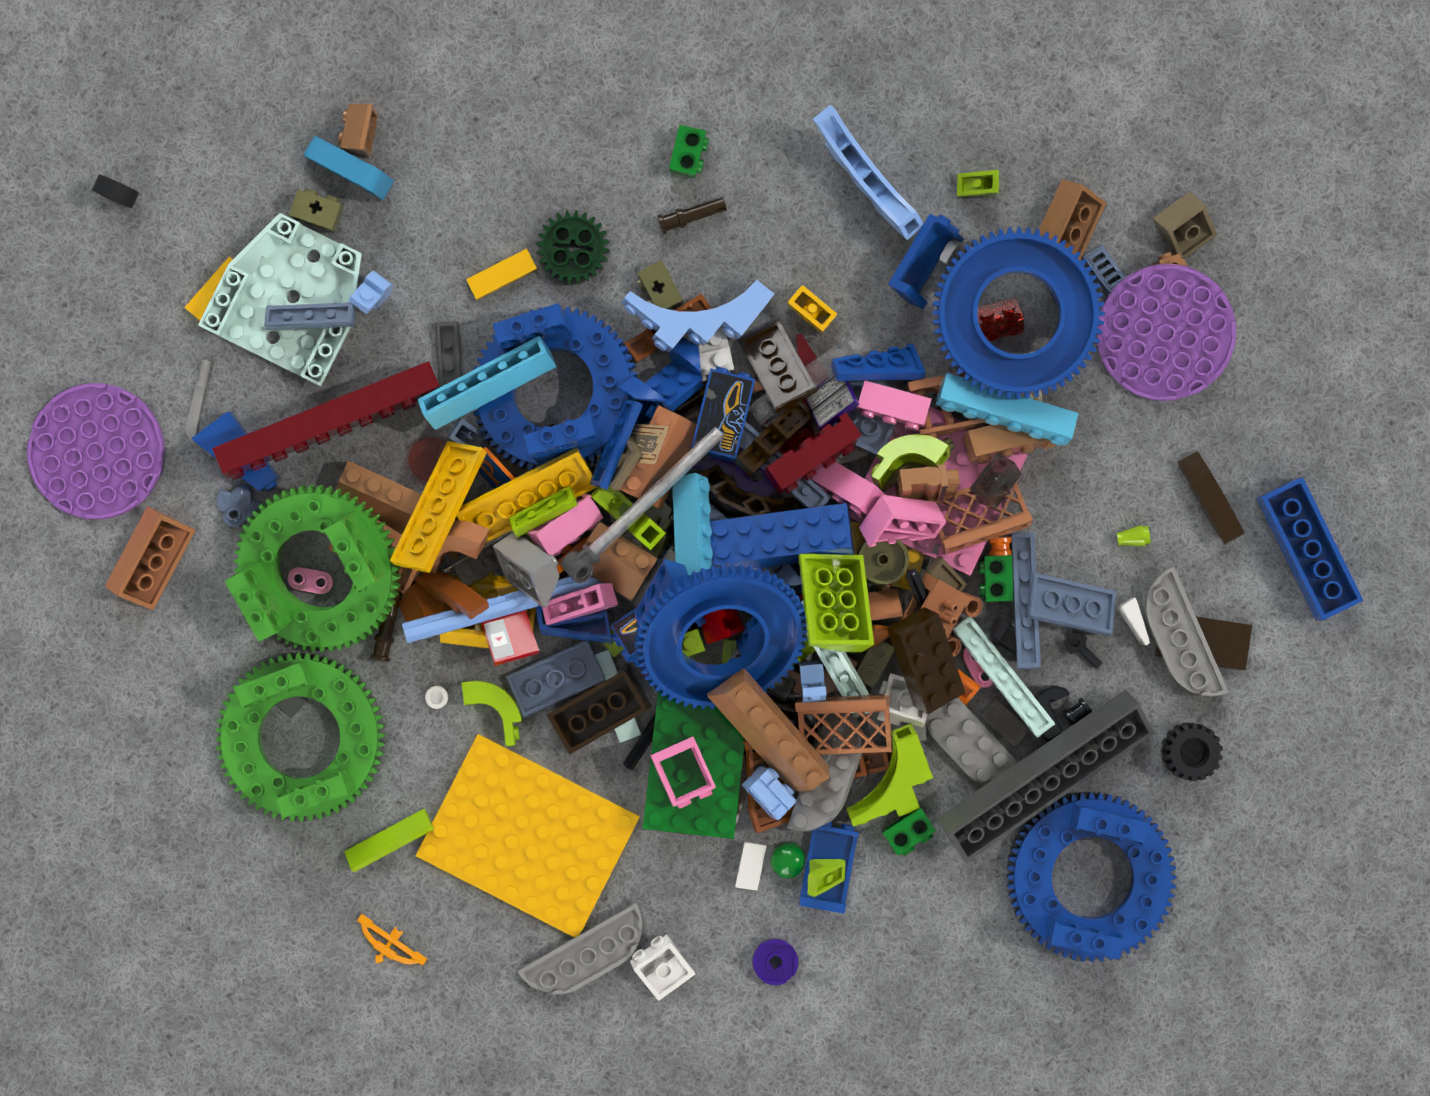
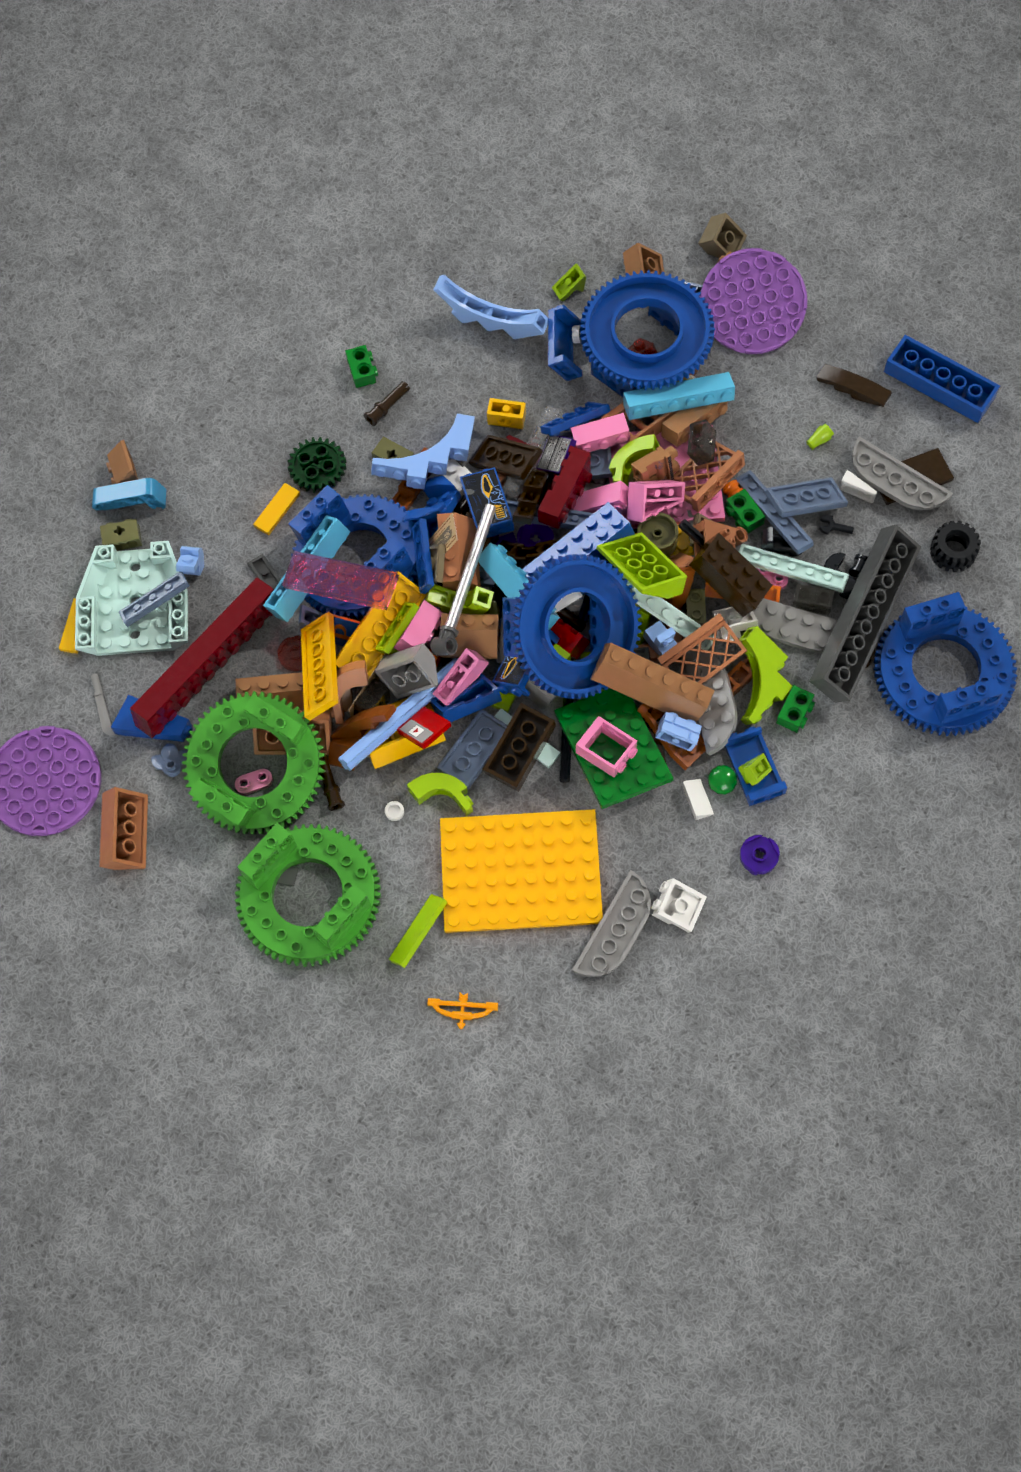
camera: 25 degrees left, 20 degrees down
(507, 432) = (340, 580): none -> clear pink plate

